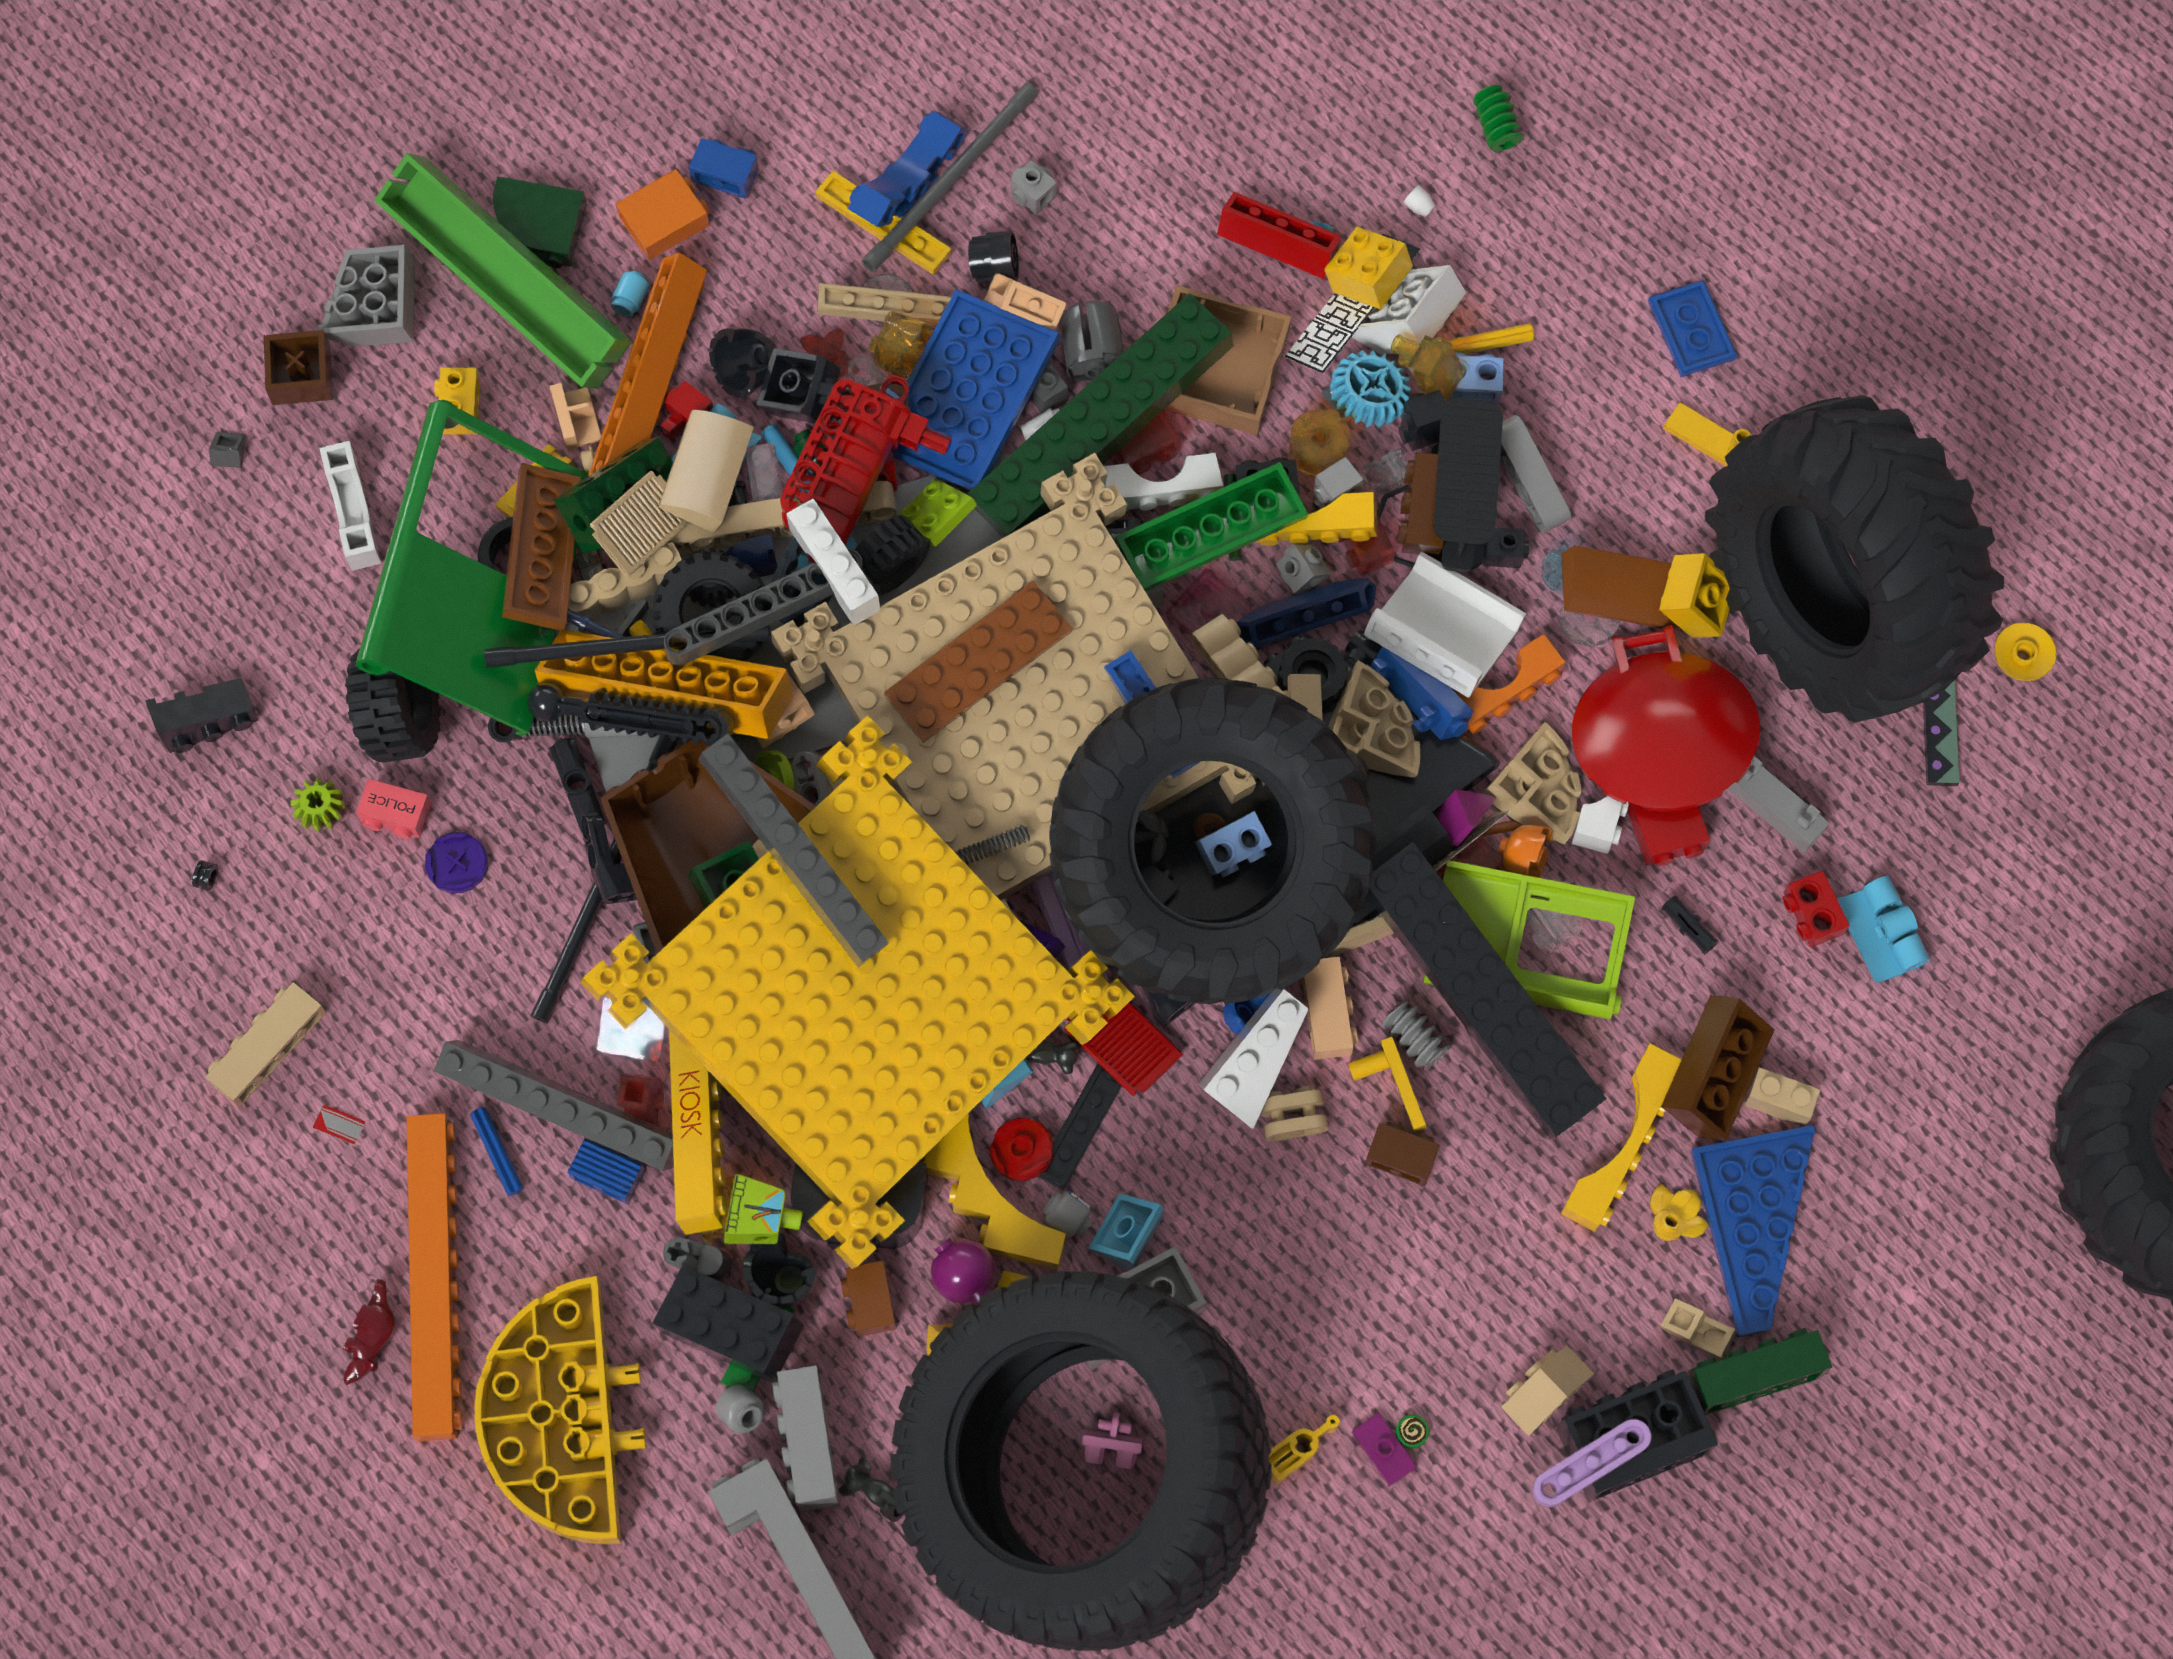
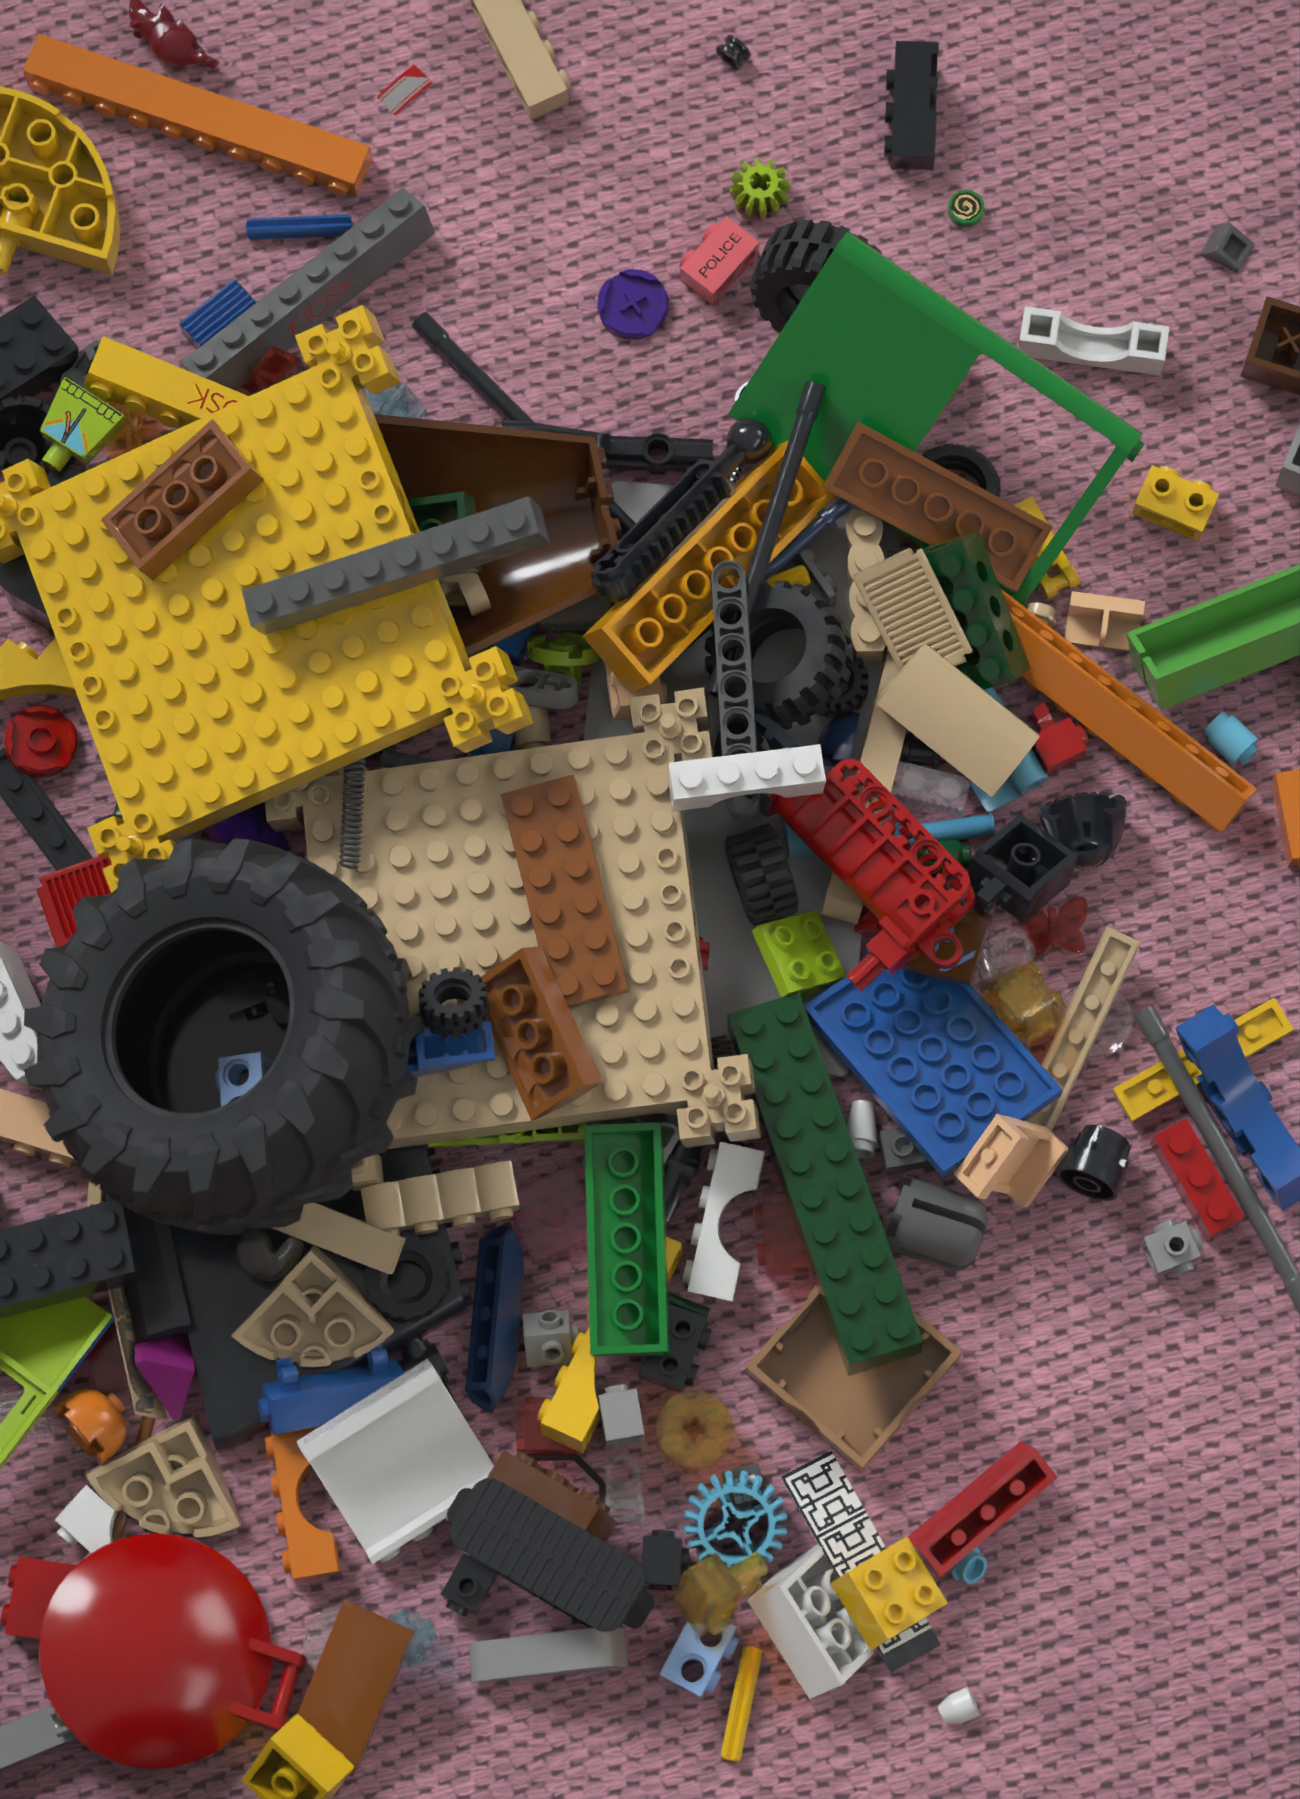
camera: 120 degrees right, 5 degrees up
(271, 648) = (966, 208): none -> tile
(801, 1060) = (182, 500): none -> dark orange slope
(974, 190) = (1196, 1180): none -> red brick
(1087, 689) = (453, 986): none -> black tyre
(1096, 632) = (537, 1033): none -> dark orange slope

